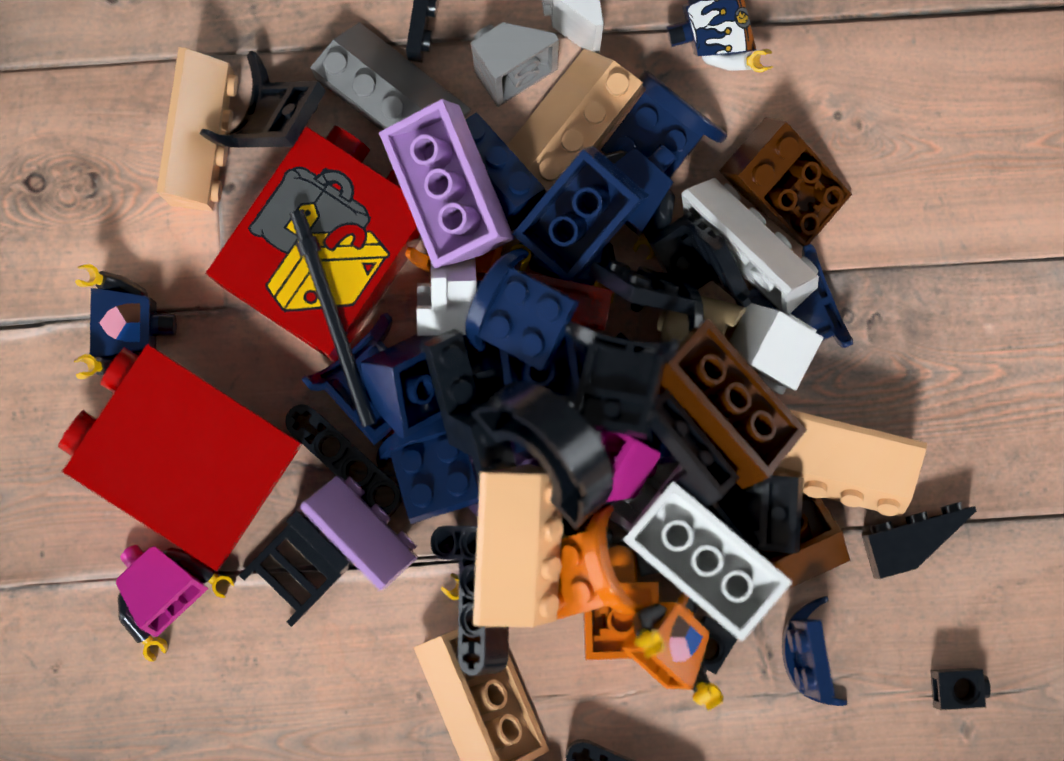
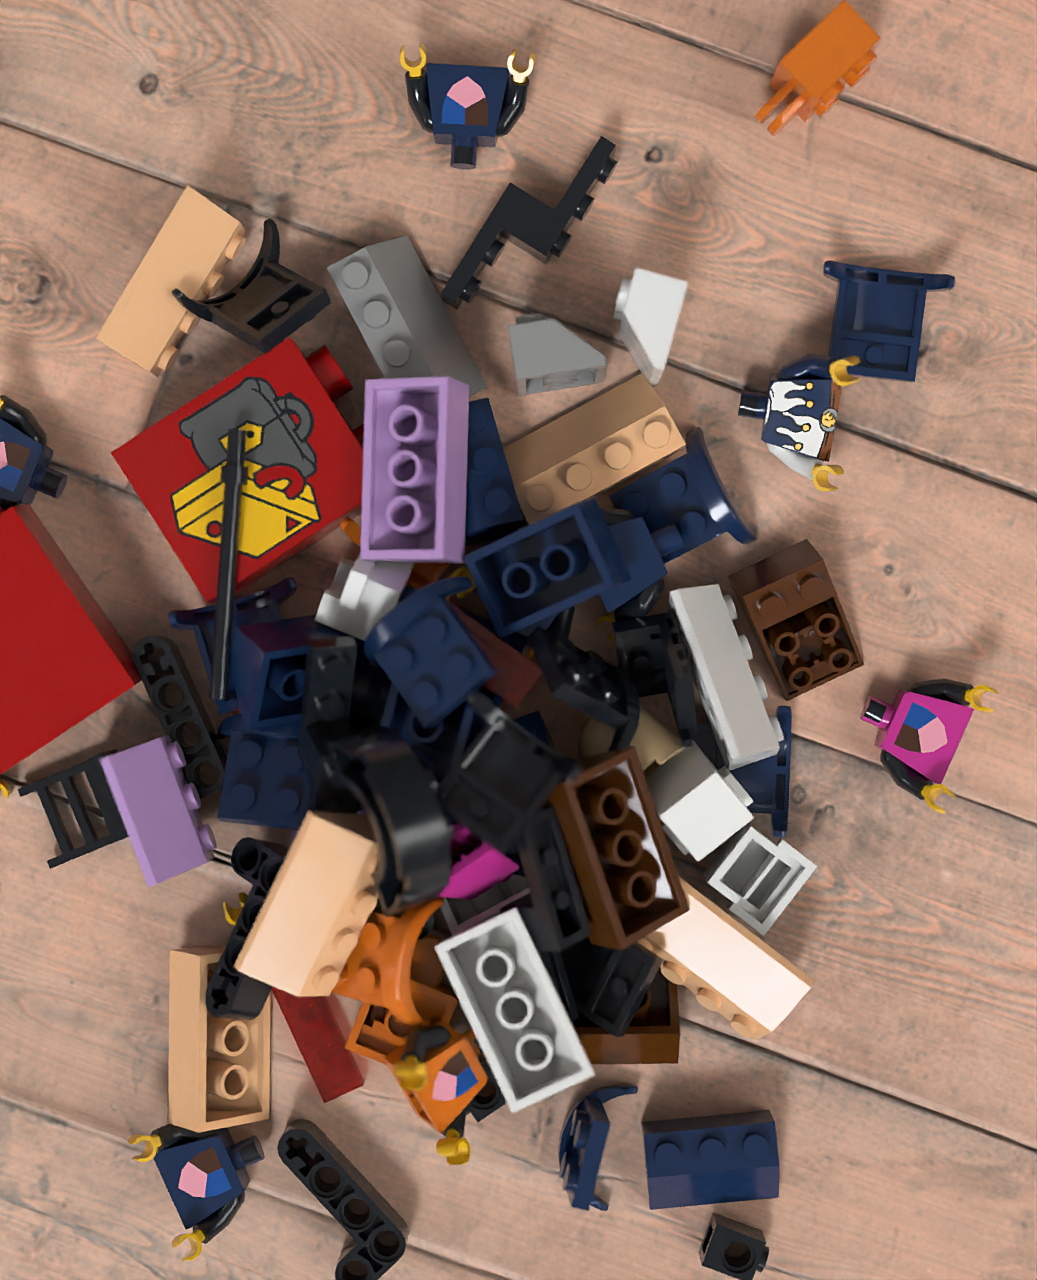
camera: 20 degrees right, 5 degrees up
(559, 667) = (320, 1043): none -> clear red plate
(845, 385) = (758, 876): none -> white plate
(907, 546) = (750, 1073): black slope -> none
(910, 627) = (711, 1159): none -> dark blue slope
(922, 223) = (924, 732): none -> torso

